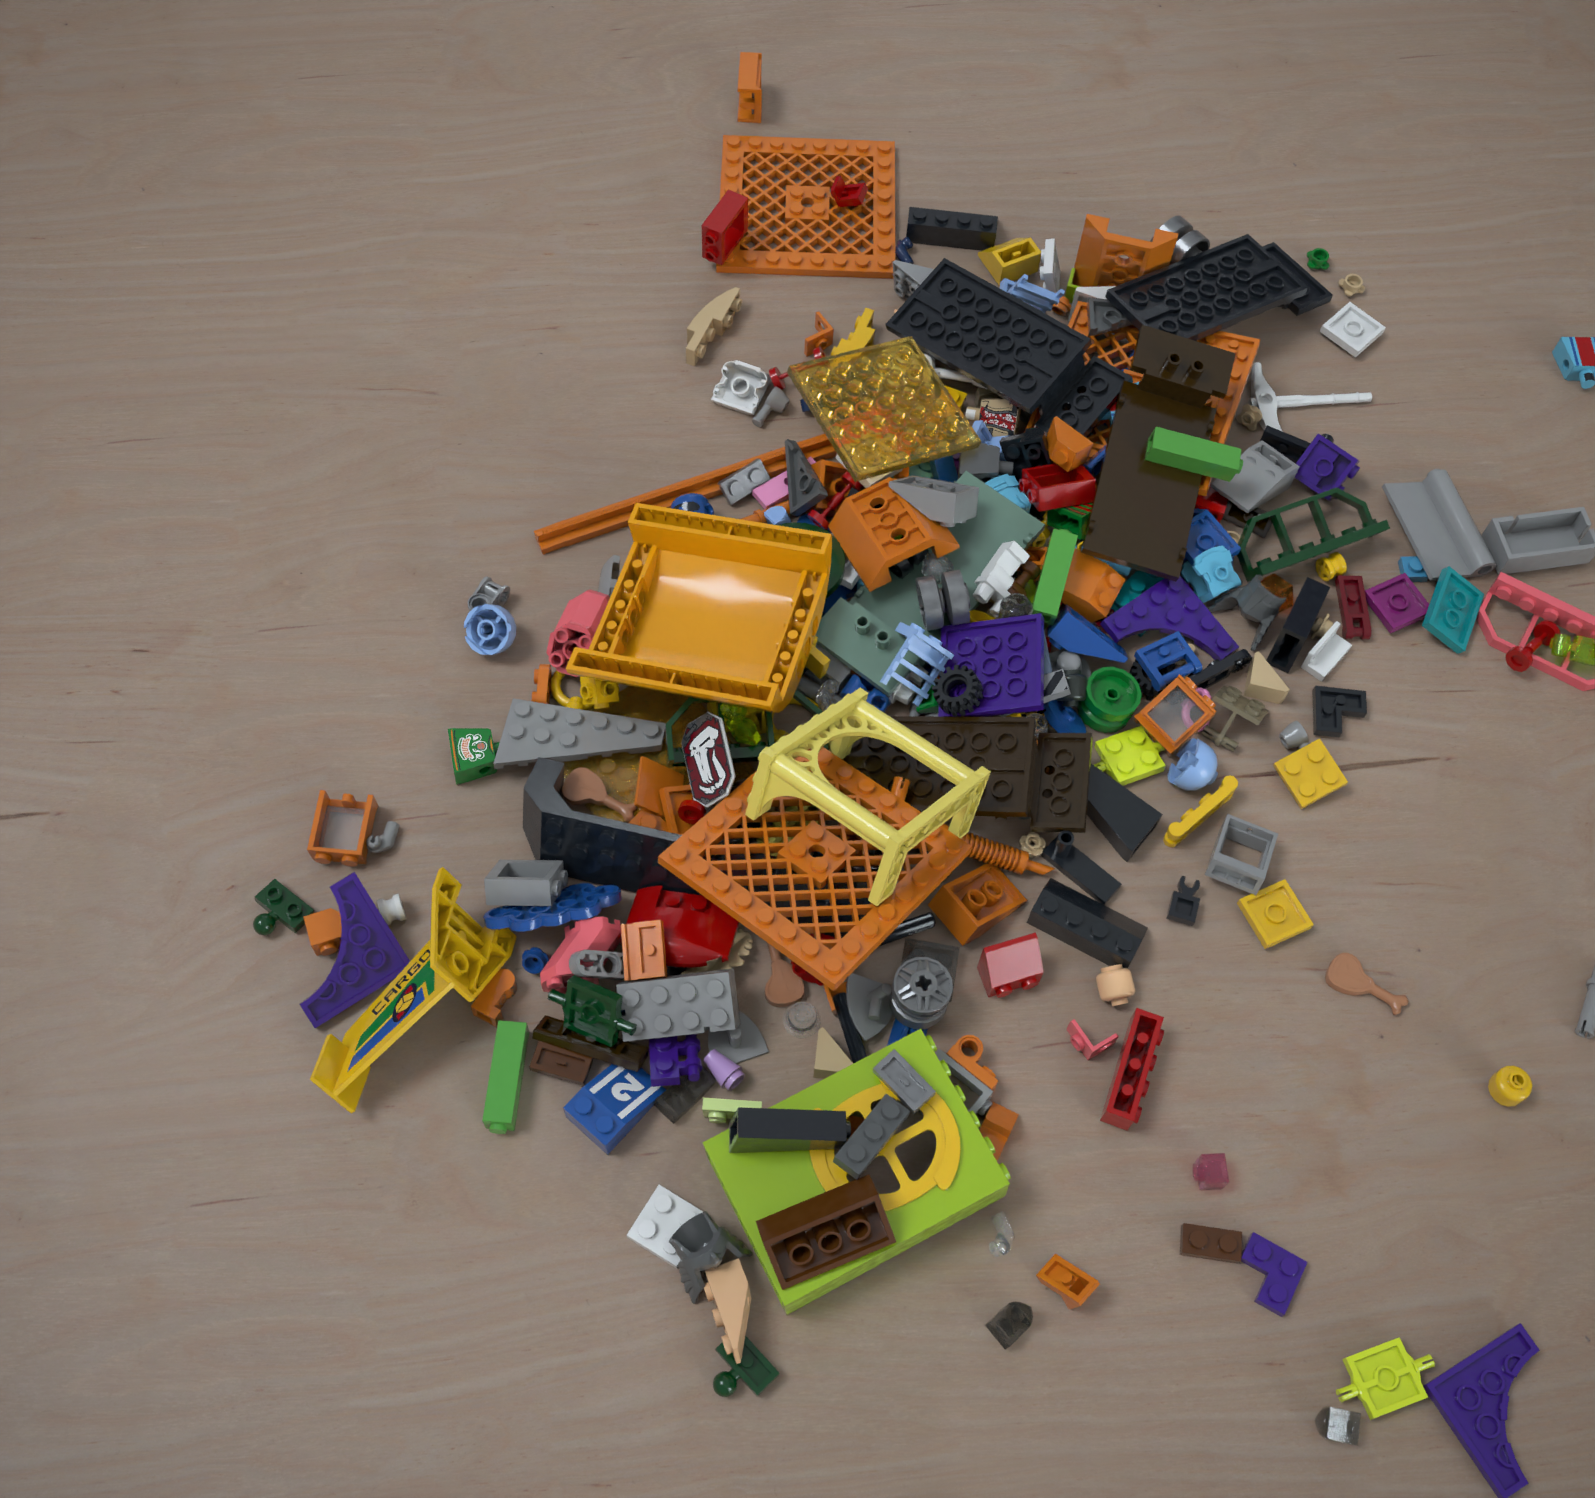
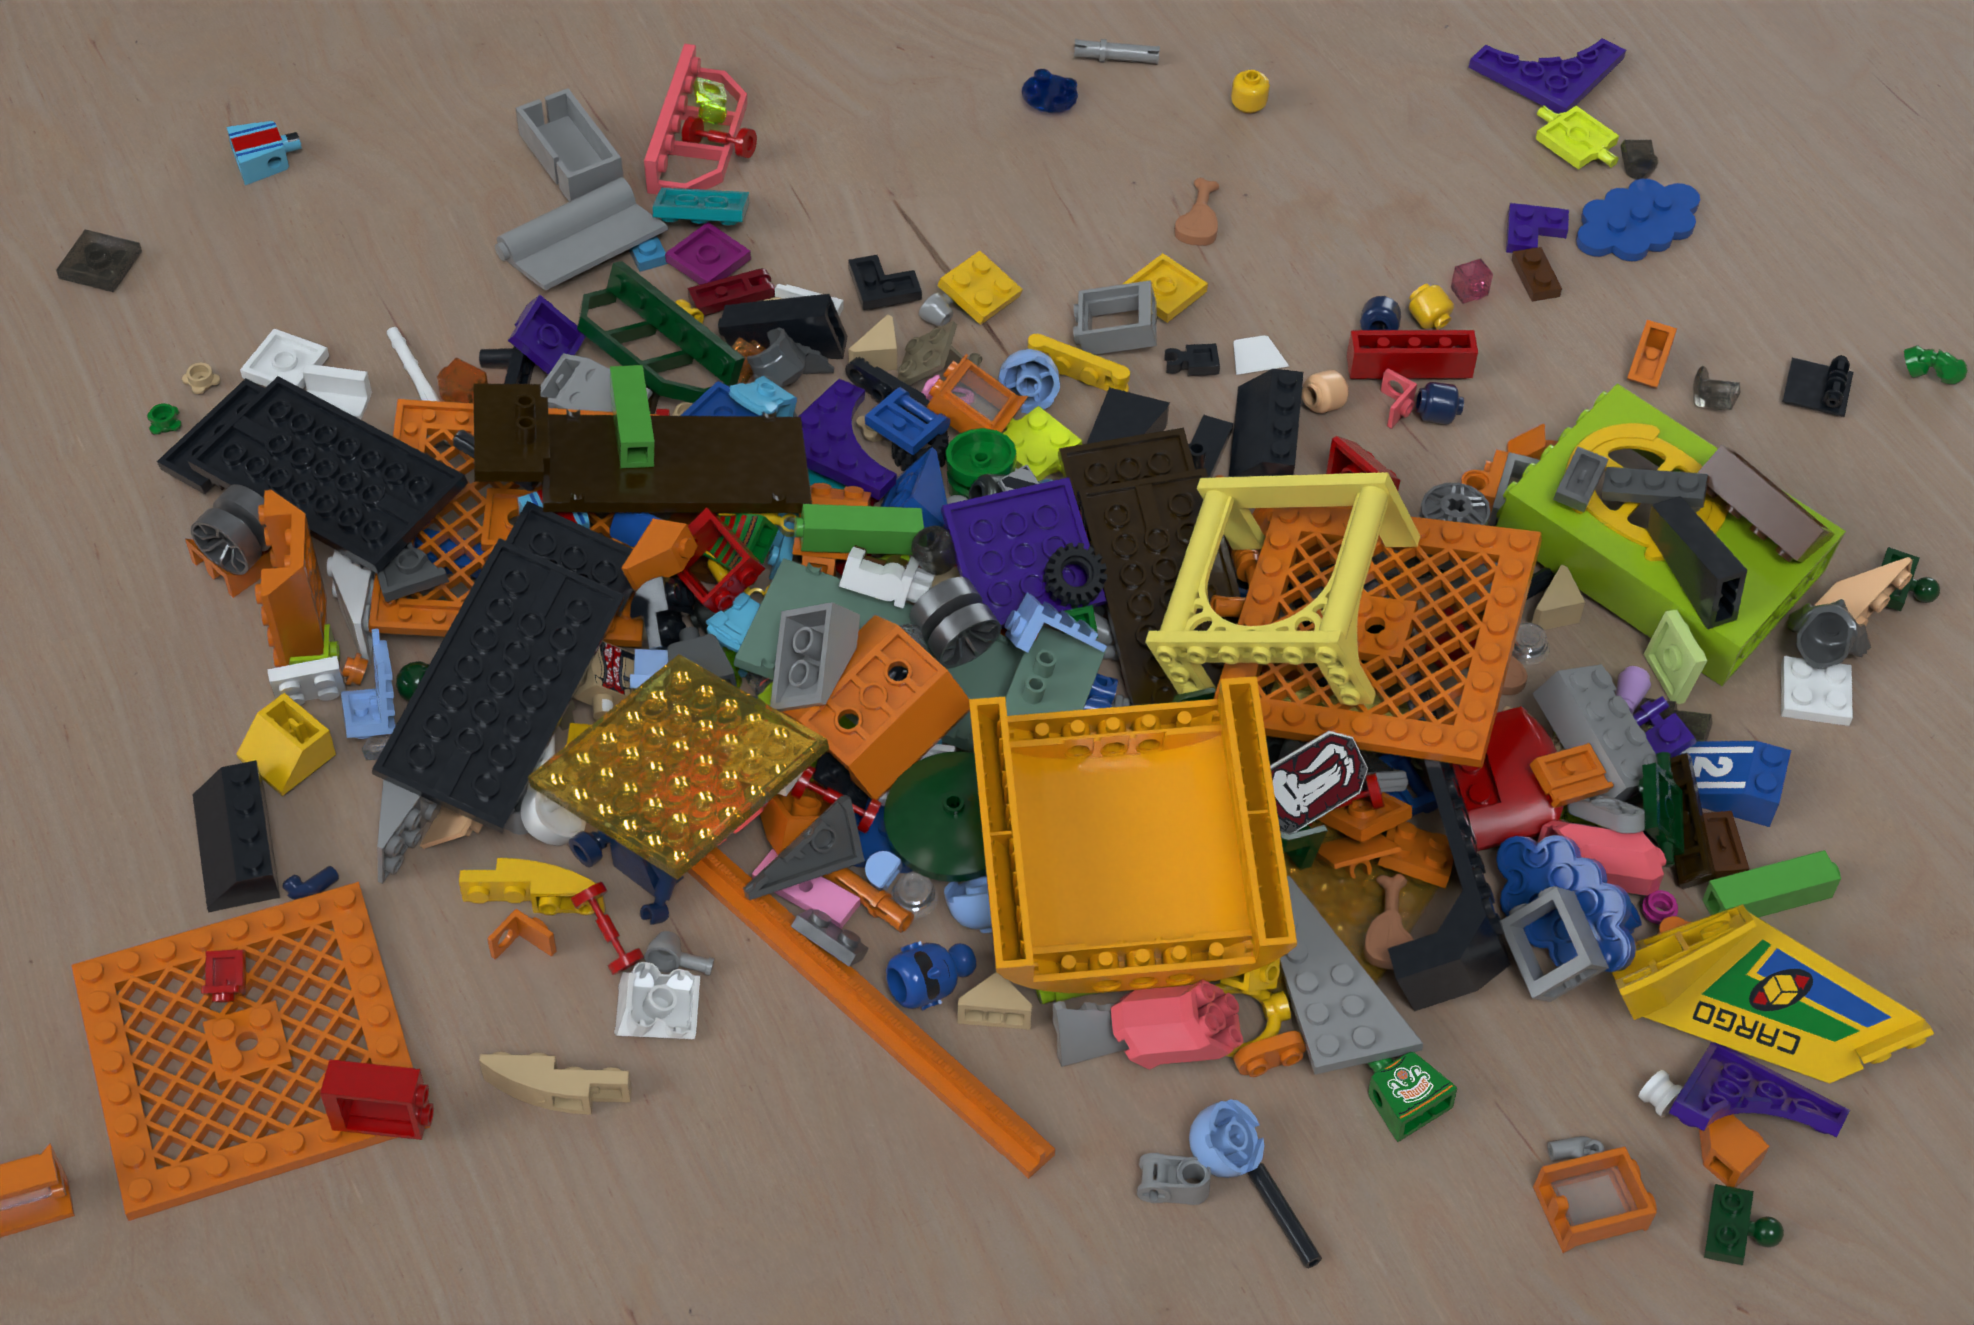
camera: 110 degrees left, 10 degrees down
(434, 653) = (1285, 1216): none -> black piece
(526, 986) = (1662, 900): none -> dark pink plate
(990, 1433) = (1819, 385): none -> black hinge
(1072, 1069) = (1439, 403): none -> dark blue head
(1181, 960) = (1257, 355): none -> white sticker
(1187, 1069) = (1380, 314): none -> dark blue head
(1189, 1119) = (1431, 306): none -> yellow head
(1257, 1382) = (1638, 219): none -> blue plate
(1299, 418) = (457, 381): none -> clear orange brick
(1314, 351) = (340, 387): none -> white panel
(1483, 253) = (99, 260): none -> clear smoke plate
(1547, 920) = (1050, 92): none -> clear blue dish

